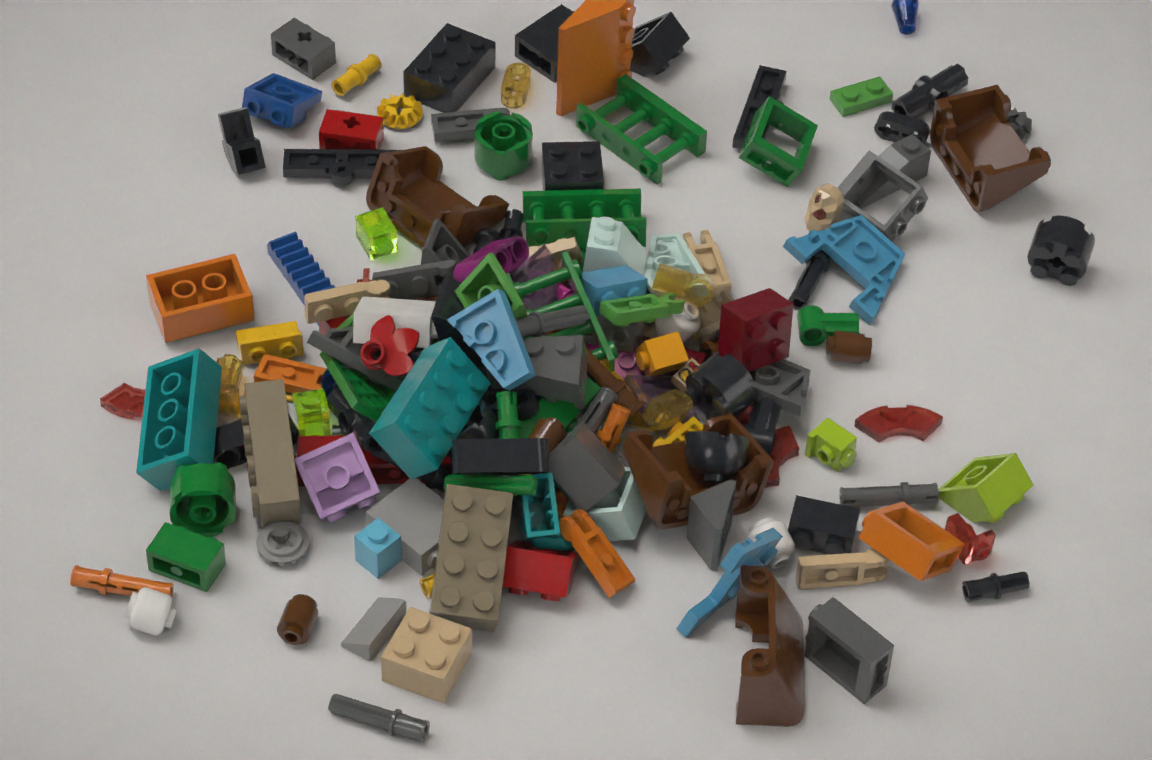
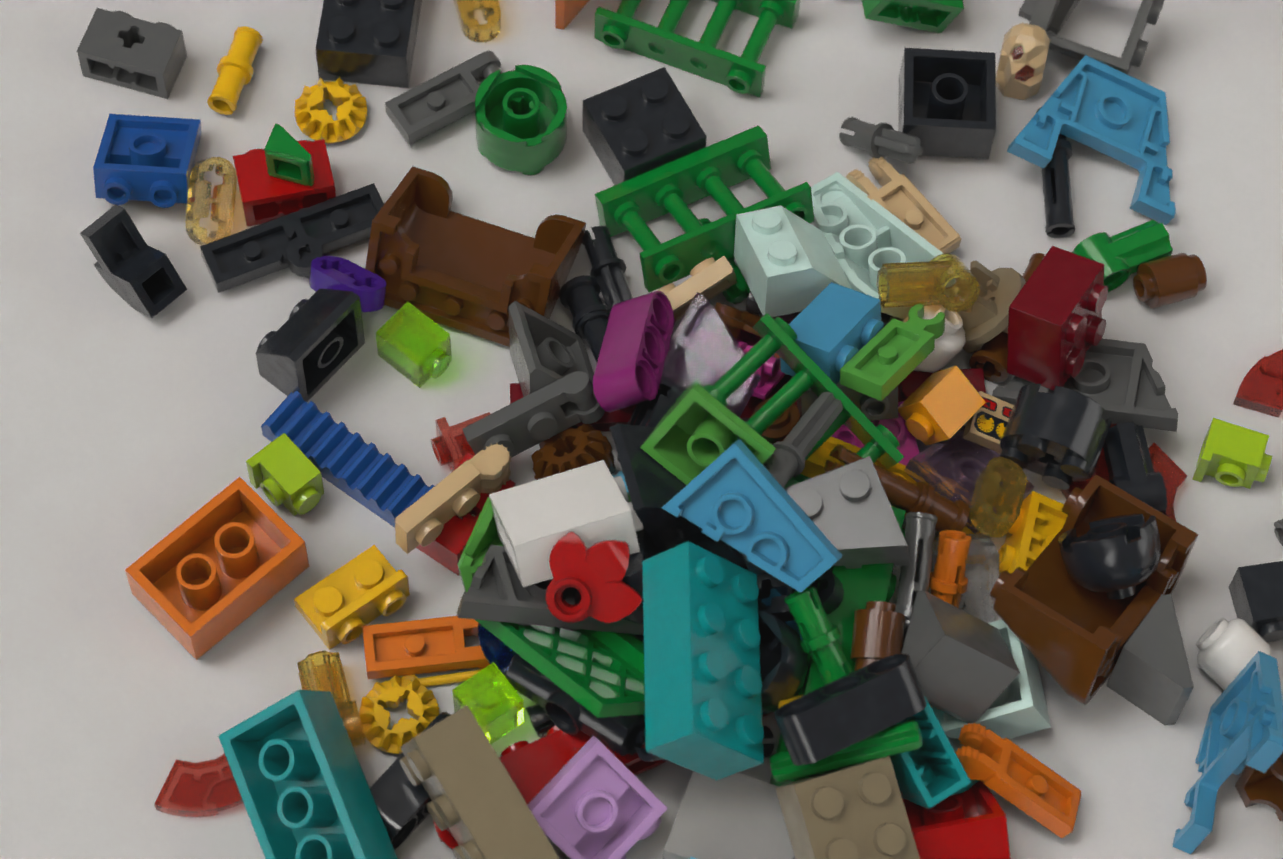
camera: 25 degrees left, 15 degrees up
(265, 270) = (286, 476): none -> lime brick
(297, 125) = (200, 200): none -> clear yellow beam
(319, 214) = (312, 342): none -> black slope
(353, 114) = (288, 158): none -> green slope
(354, 189) = (344, 275): none -> dark purple beam
(710, 220) = (881, 140): none -> dark grey axle
(762, 214) = (948, 101): none -> black brick

